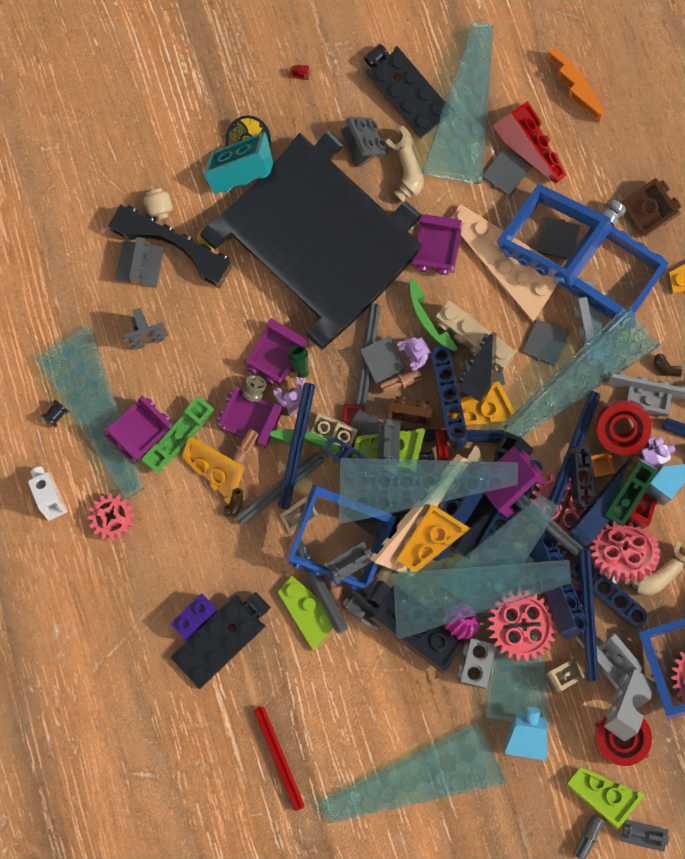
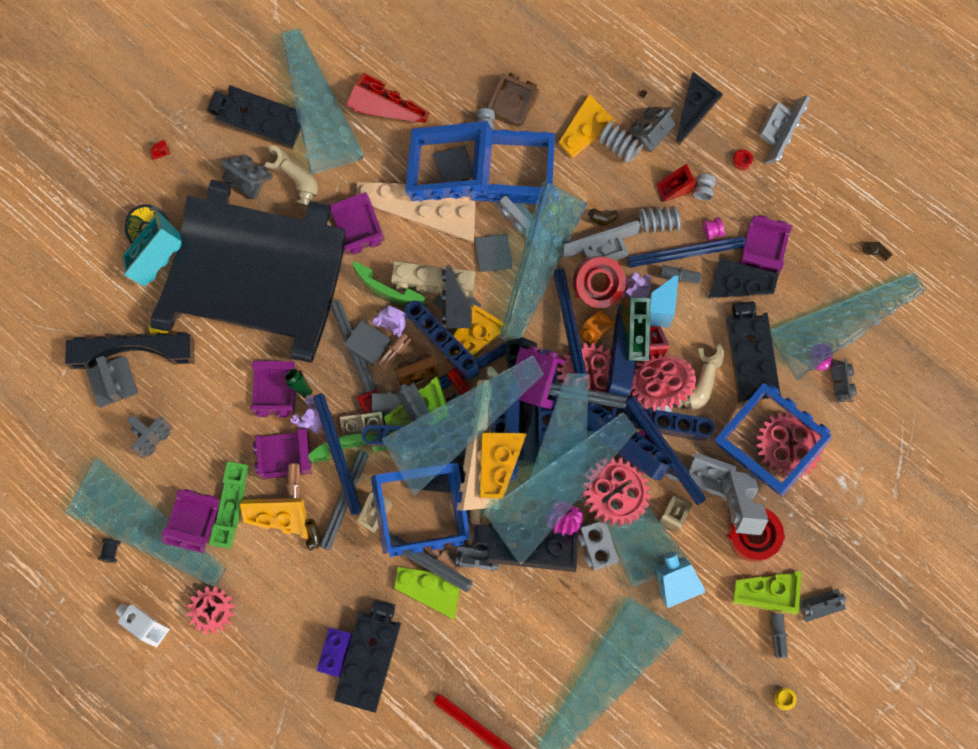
camera: 35 degrees left, 5 degrees down
(157, 204) = (99, 322): tan head -> none
(254, 388) = (272, 428): dark tan wheel -> none
(349, 561) = (441, 523): dark grey hinge -> none
(506, 172) = (379, 137): dark grey piece -> none
(580, 90) = (400, 40): orange slope -> none
(586, 461) = (585, 326): black beam -> none

